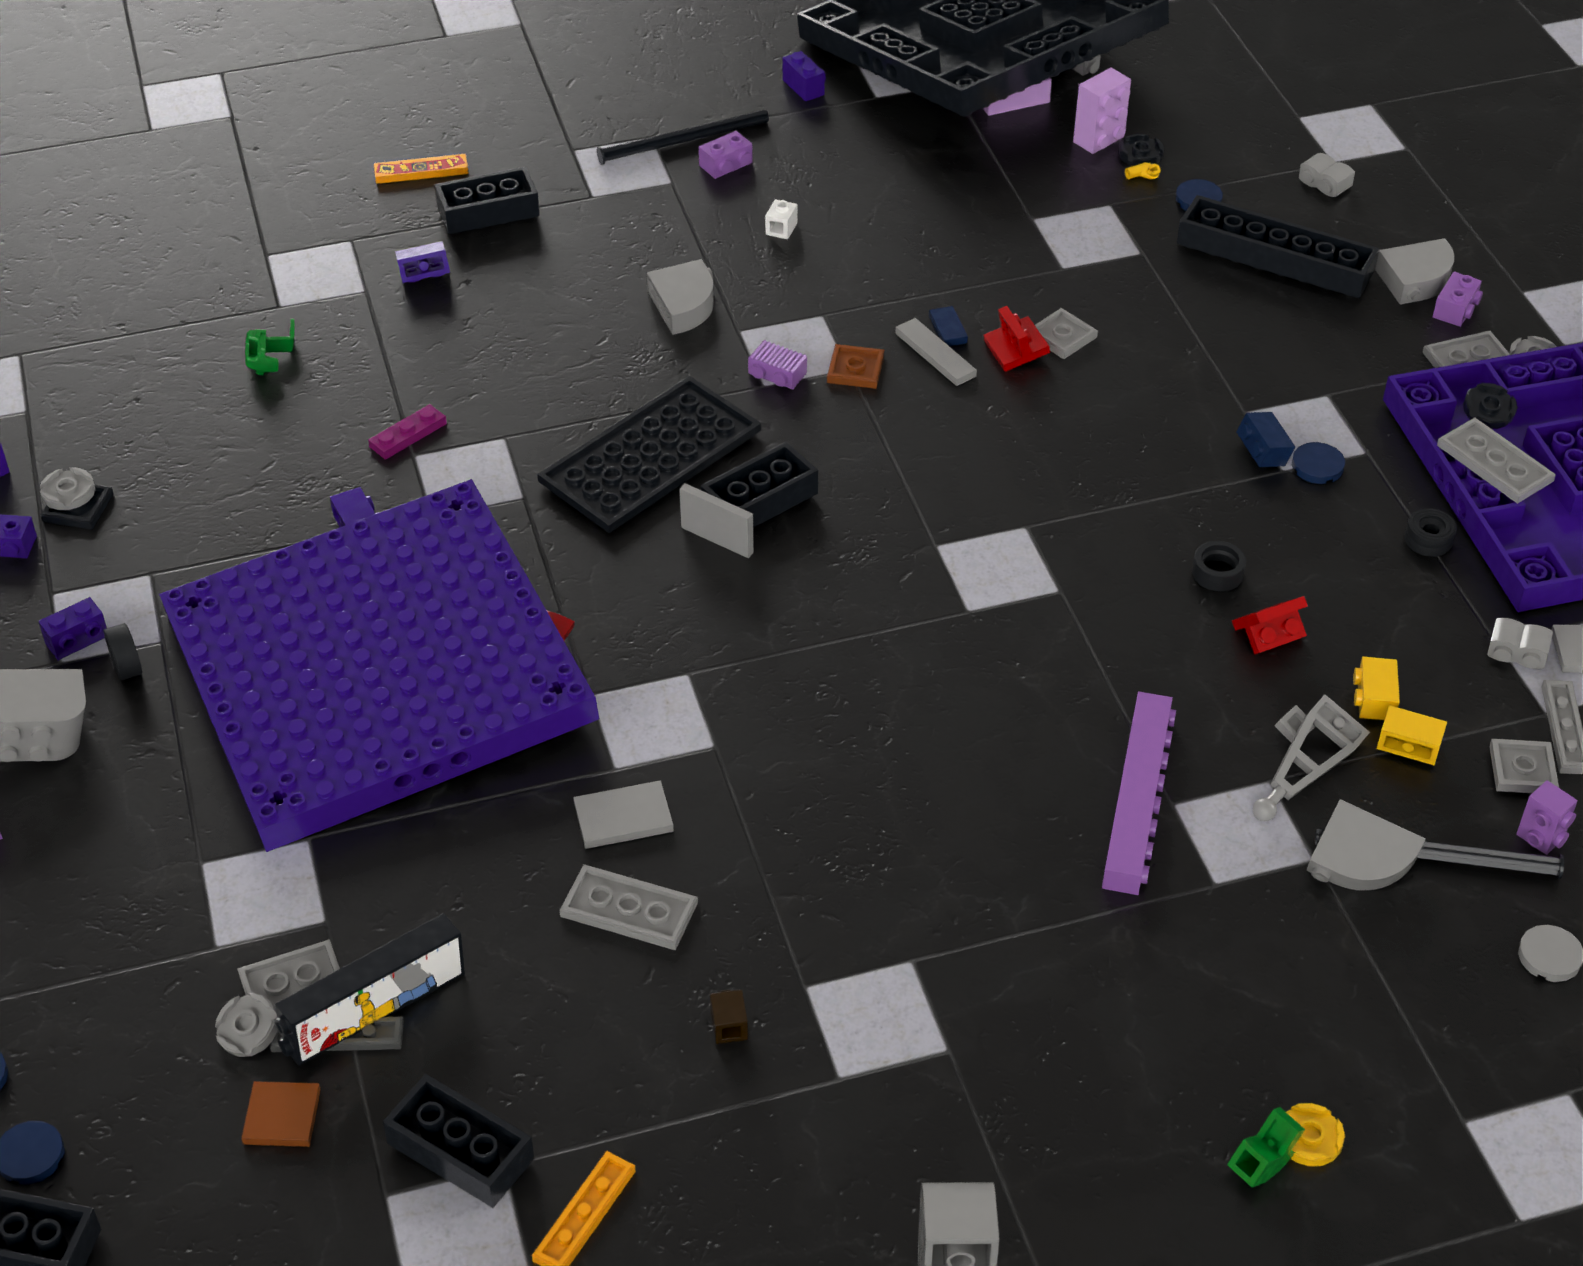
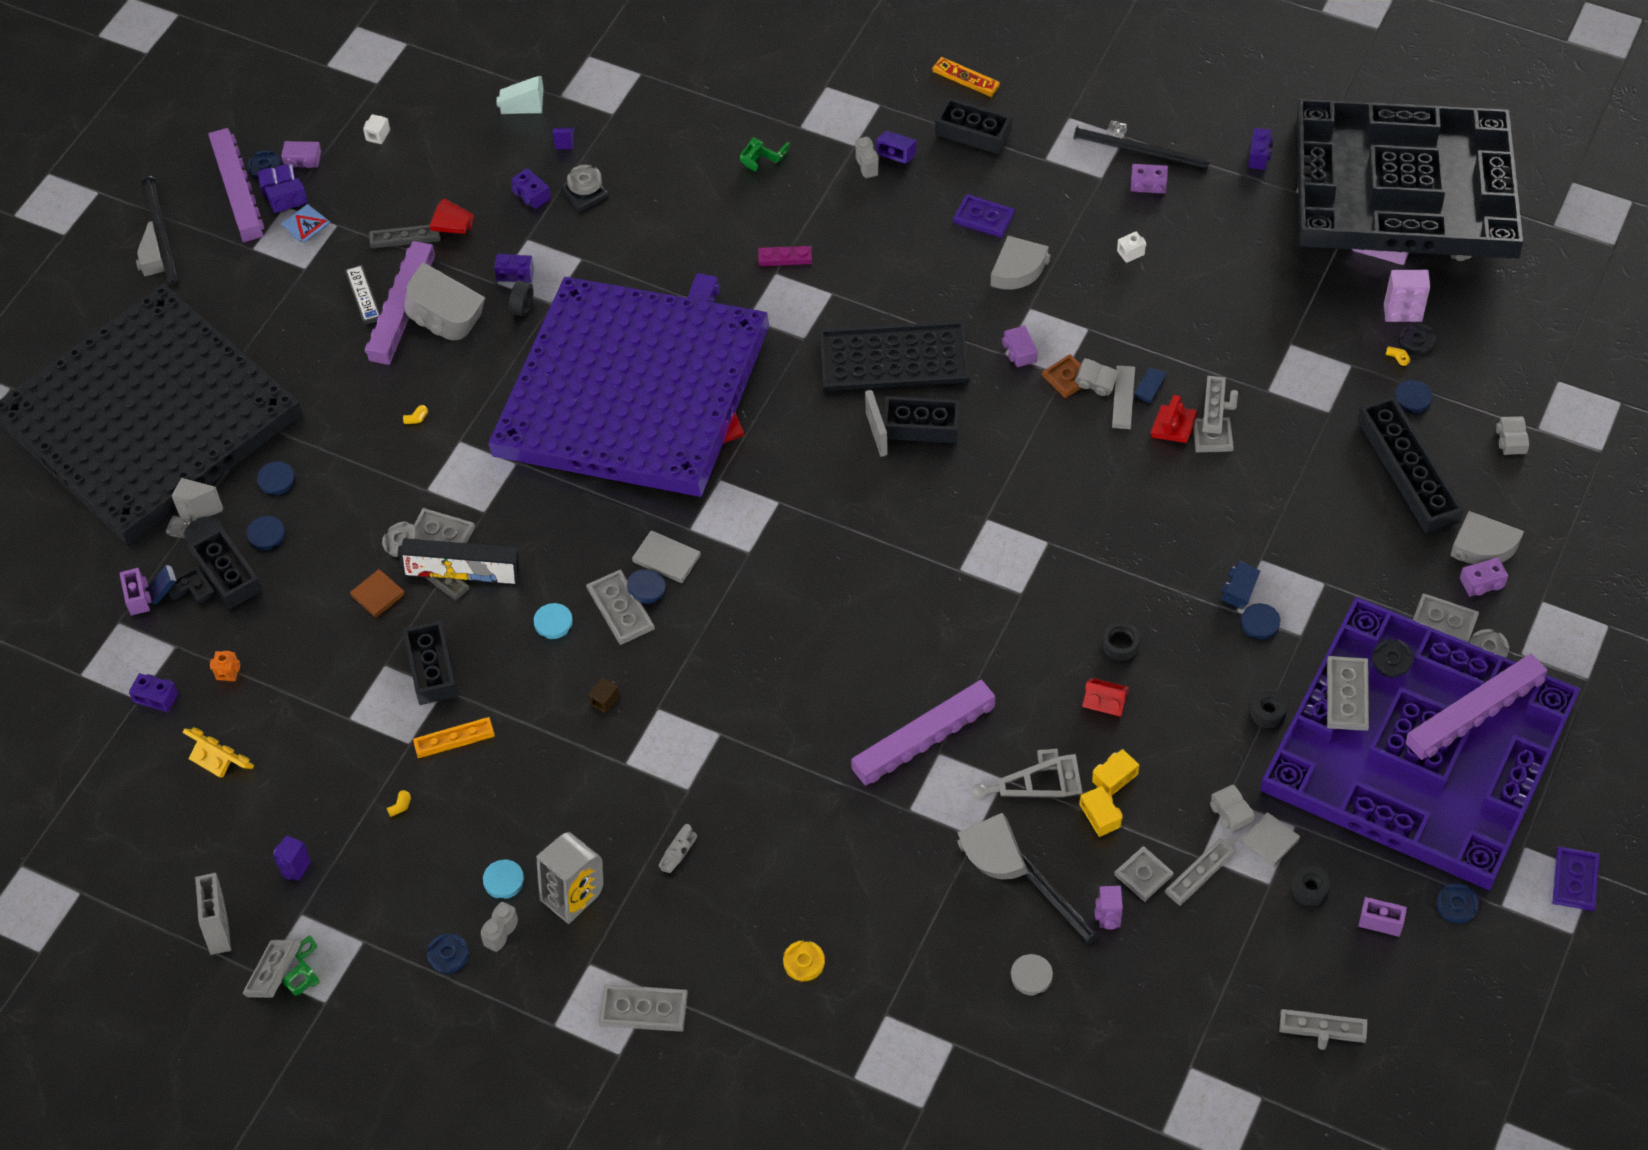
camera: 45 degrees right, 10 degrees up
(112, 871) = (417, 417): none -> yellow arm
(398, 288) = (866, 157): none -> light grey brick
(561, 980) = (553, 620): none -> medium azure tile
(590, 276) = (984, 215): none -> dark purple tile
(638, 860) = (646, 586): none -> dark blue tile
(640, 131) = (1117, 129): none -> clear plate
(893, 344) = (1096, 377): none -> light grey brick
(1024, 1123) = (678, 849): none -> light grey hinge
(1037, 302) = (1215, 404): none -> light grey plate
(1268, 1151) = (767, 951): green brick -> none

